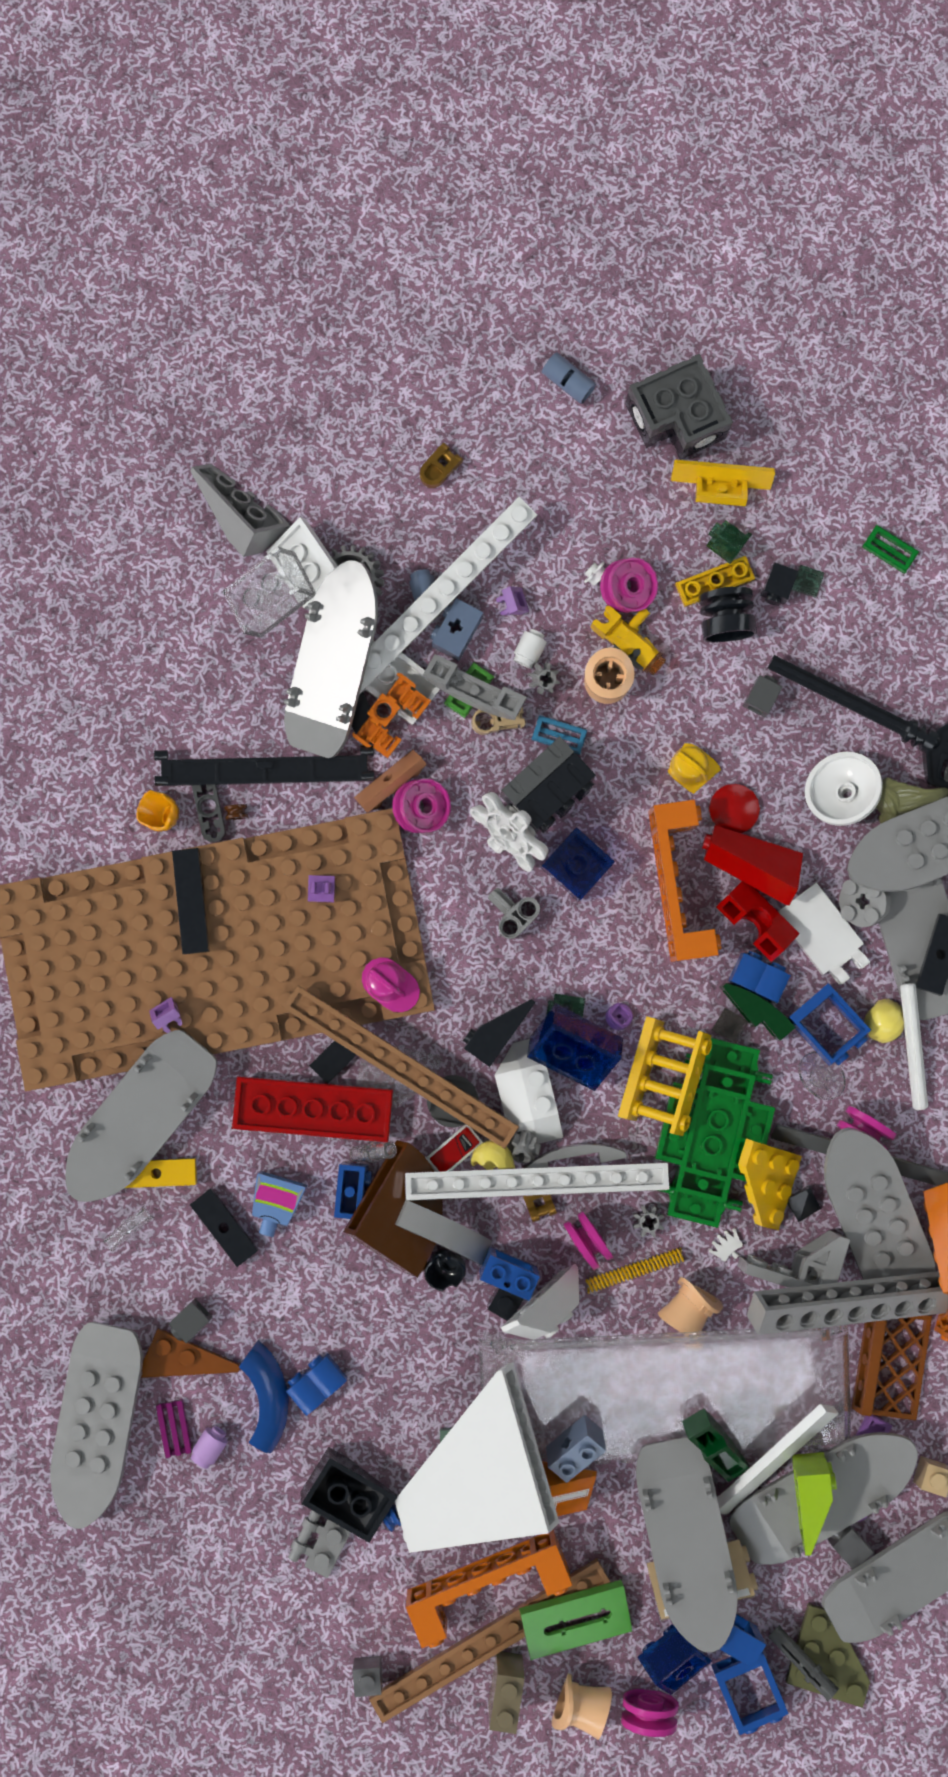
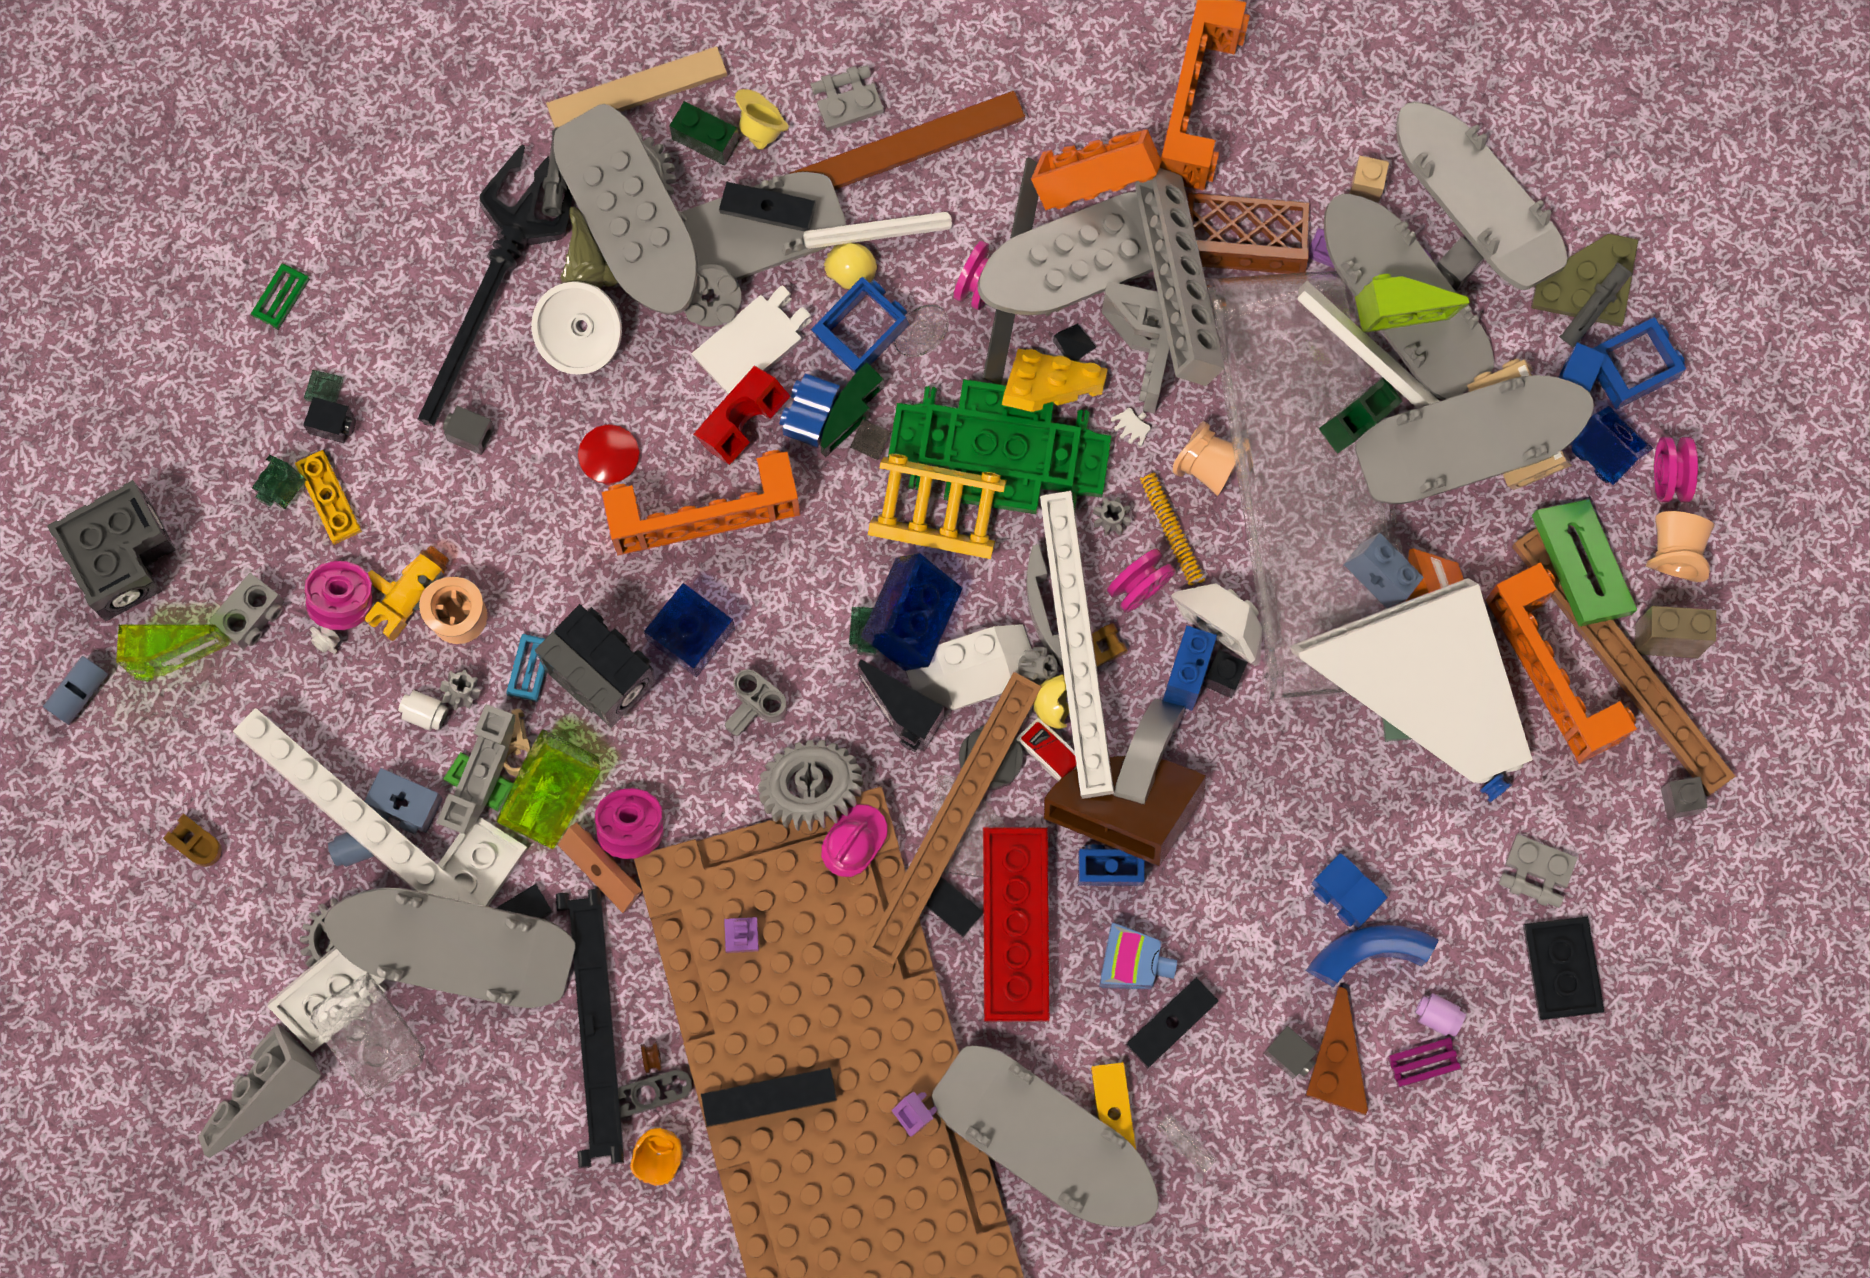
camera: 90 degrees left, 10 degrees down
(95, 1421) = (1425, 1156): light grey piece -> none
(239, 1553) = (1563, 968): none -> black tile
(347, 1495) = (1475, 840): black slope -> none
(373, 1152) = (1061, 844): clear pin -> none
(398, 694) = (489, 864): orange piece -> none
(421, 957) = (820, 801): none -> light grey gear
(444, 1261) = (1188, 741): black hair -> none
(456, 744) = (549, 789): none -> clear neon green slope
(499, 821) = (647, 723): white plate -> none
(514, 601) = (363, 733): medium lavender tile -> none
(594, 439) = (162, 649): none -> clear neon green slope
(619, 1016) = (870, 569): medium lavender tile -> none
(627, 509) = (240, 607): none -> light grey brick
(692, 767) = (560, 507): yellow piece -> none
(722, 482) = (204, 496): yellow bracket -> none
(727, 611) = (370, 475): black wheel -> none
(756, 862) = (672, 422): red slope -> none

